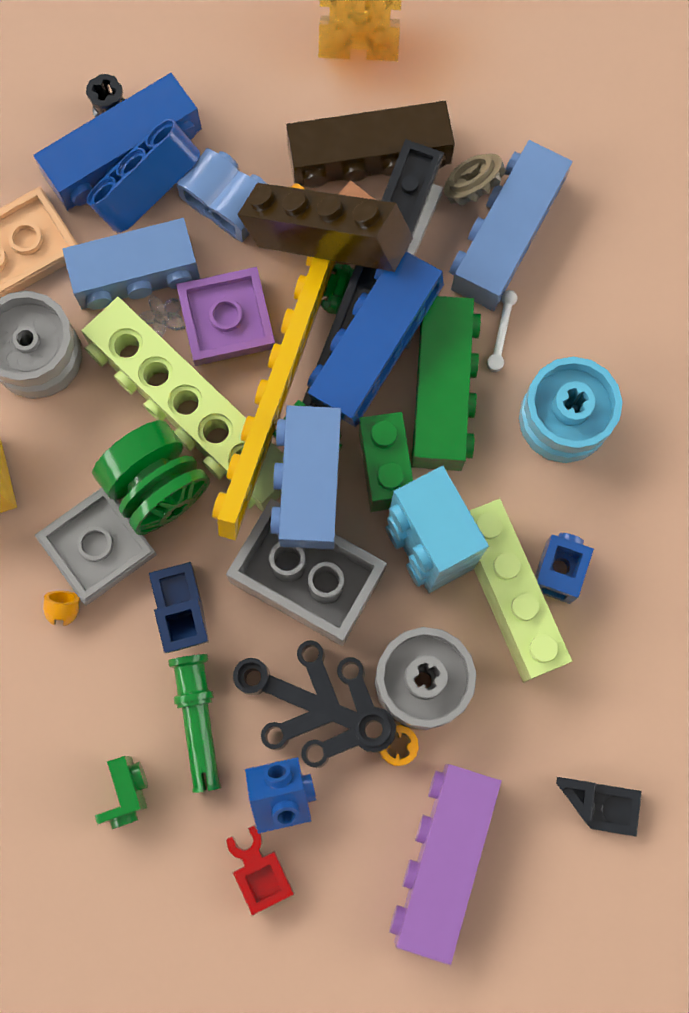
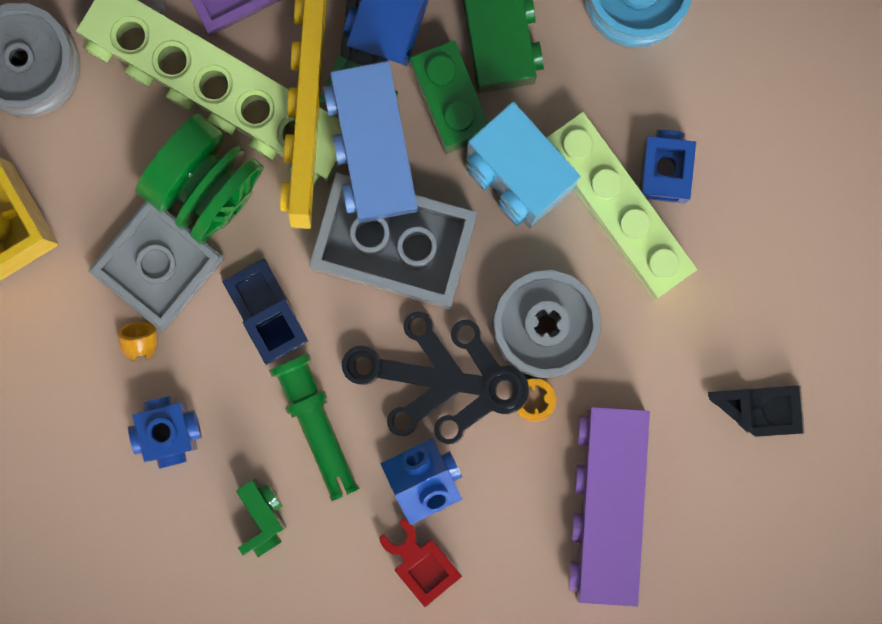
camera: 15 degrees left, 10 degrees up
(75, 697) = (183, 427): none -> blue brick

